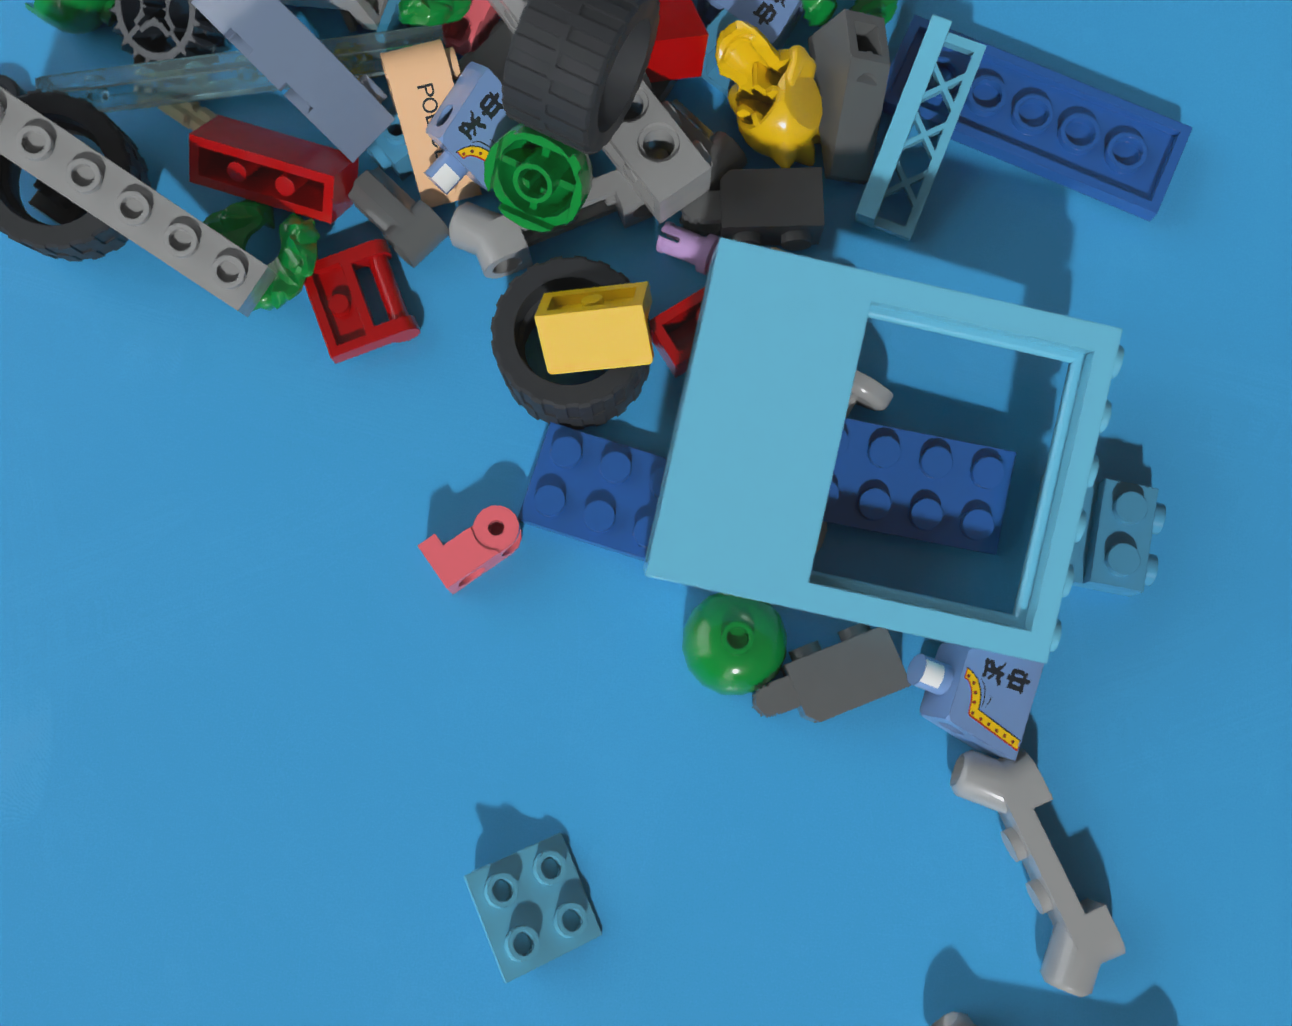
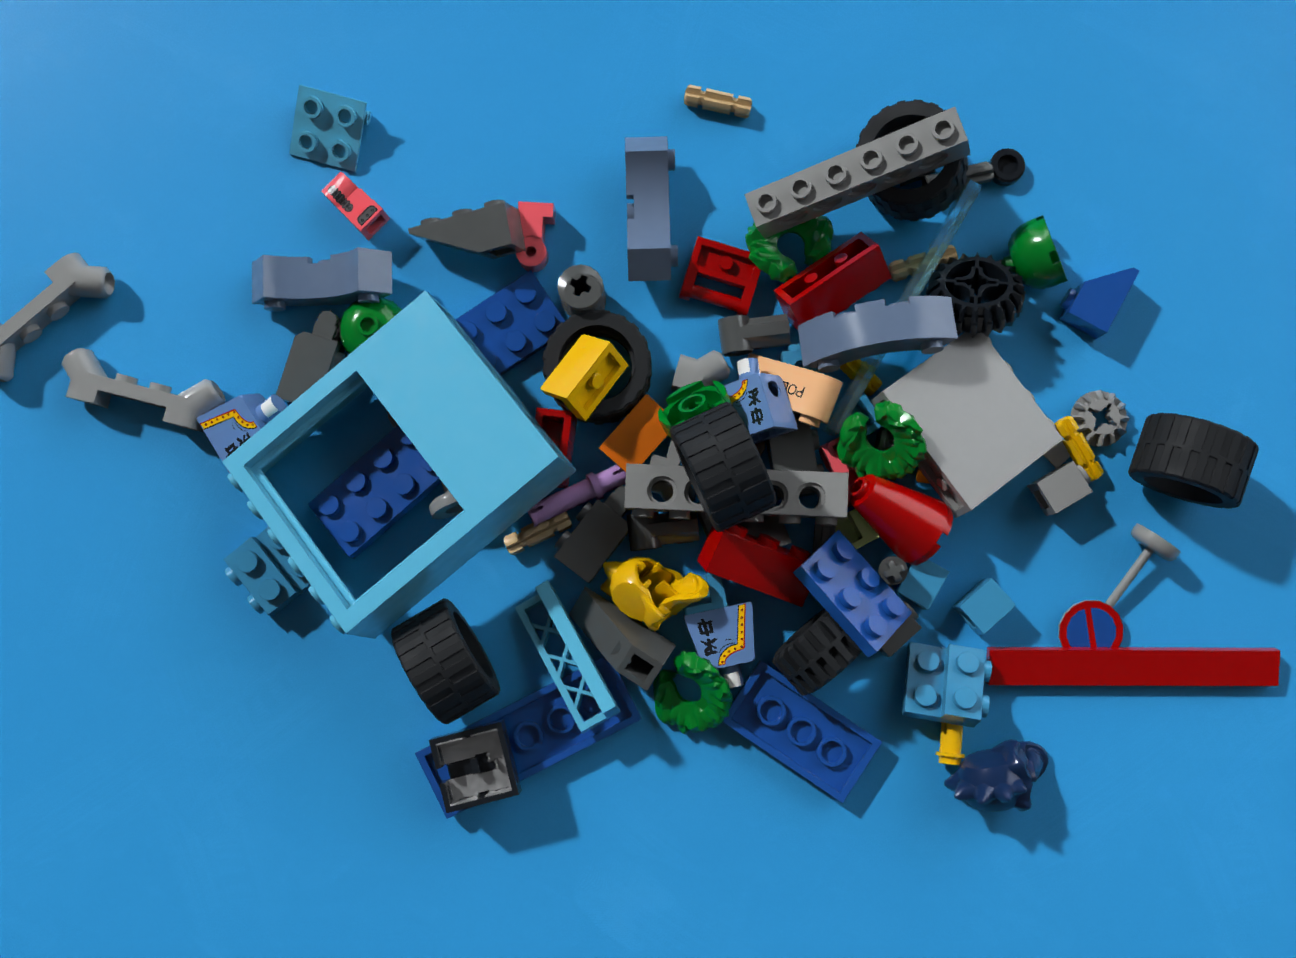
camera: 130 degrees right, 5 degrees up
(149, 464) = (717, 101): none -> tan axle
(342, 435) = (649, 217): none -> sand blue brick
(495, 404) = (575, 282): none -> dark grey piece
(521, 597) = (484, 231): none -> dark grey slope
(602, 793) = (355, 205): none -> coral leg
(620, 237) = (636, 435): none -> orange panel
(719, 744) = (342, 279): none -> sand blue brick
(1043, 232) = (445, 661): none -> black tyre
(1116, 126) = (478, 765): none -> piece

